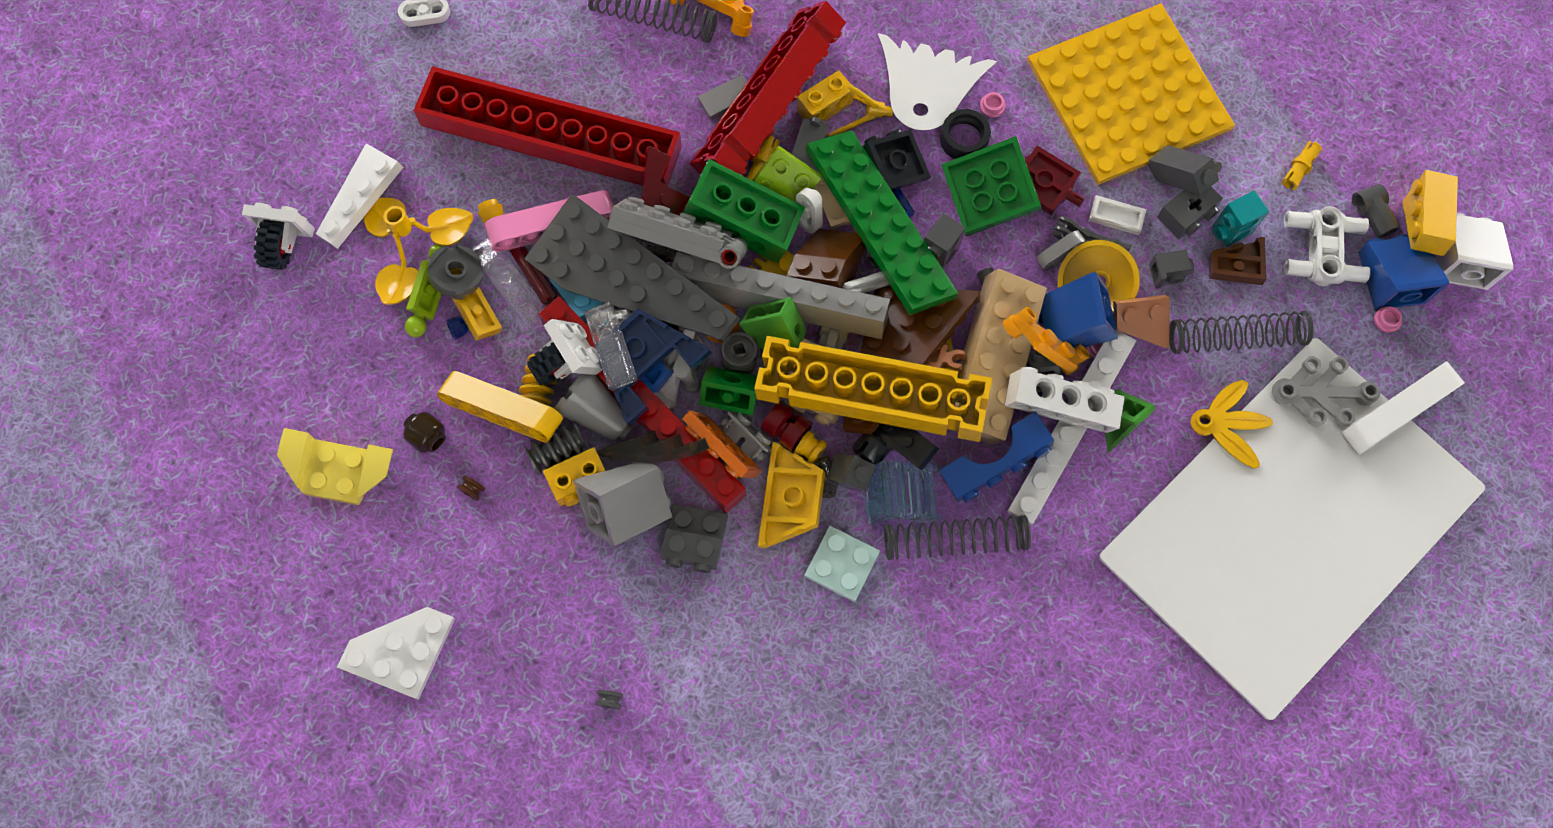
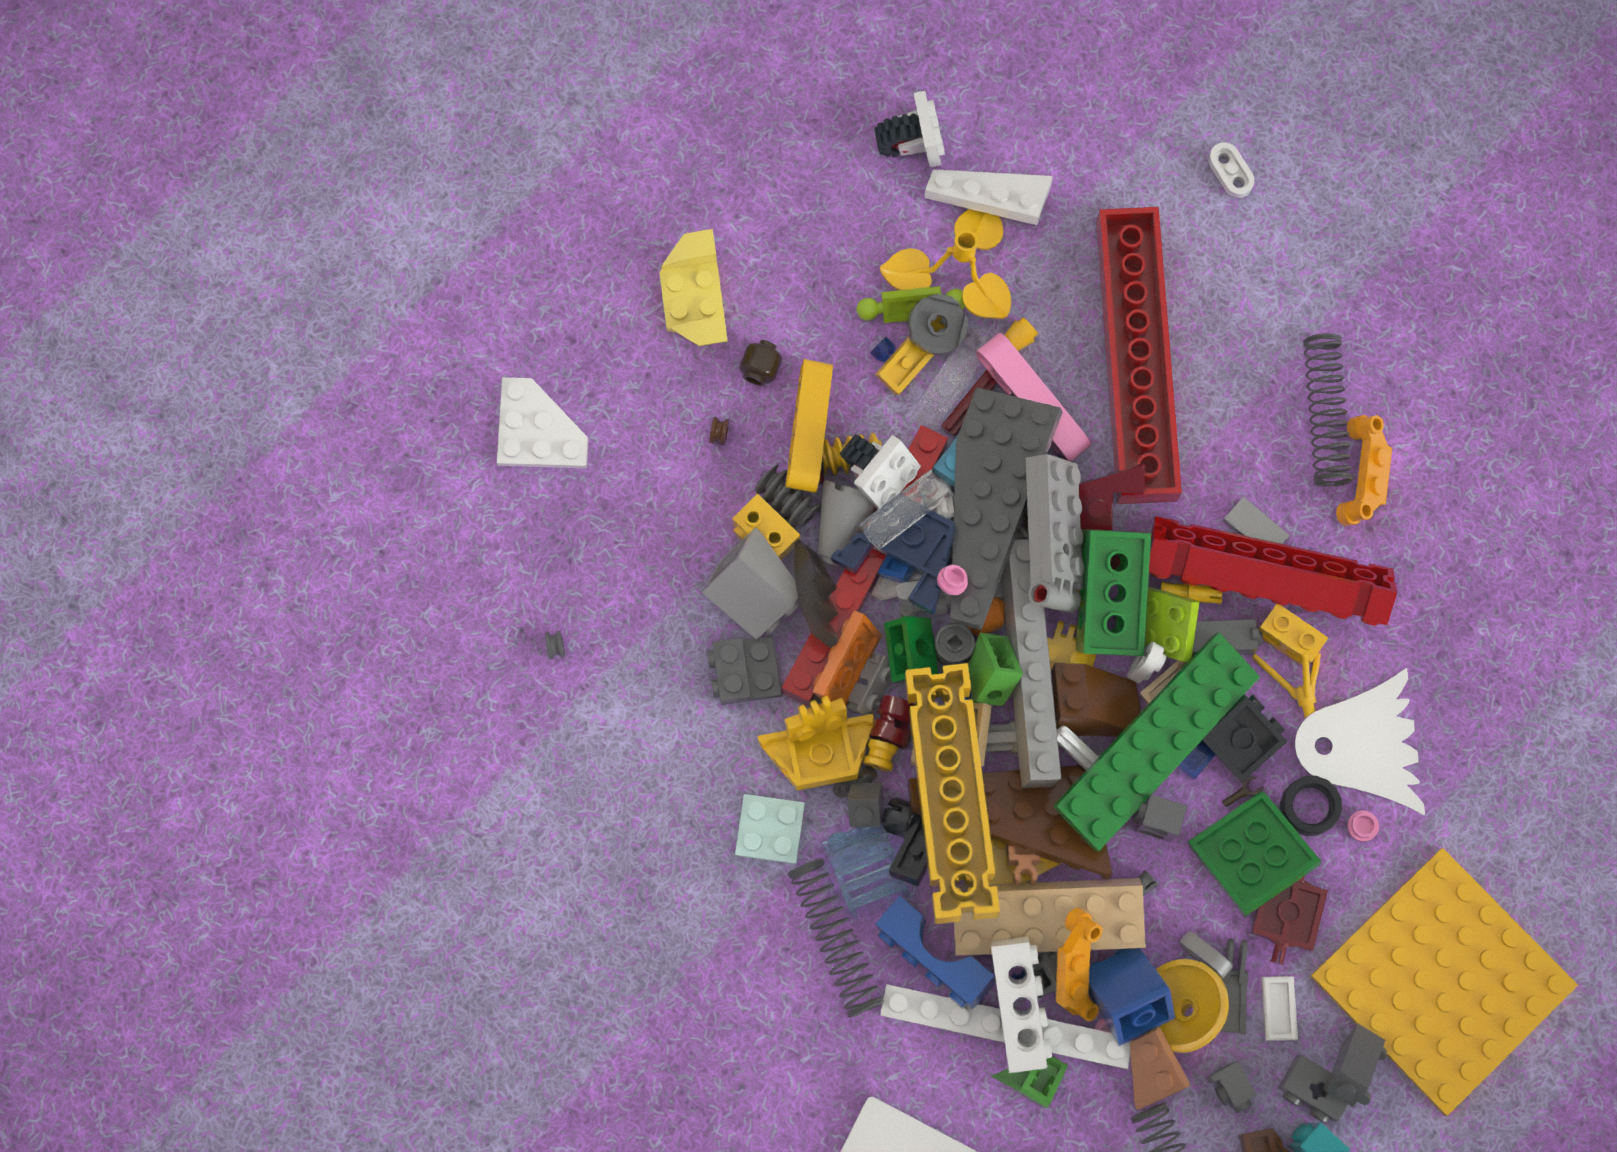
camera: 75 degrees right, 5 degrees up
(689, 323) = (952, 580): none -> bright pink plate
(762, 488) = (816, 718): none -> yellow hinge
(937, 181) = (1242, 792): none -> dark brown hand

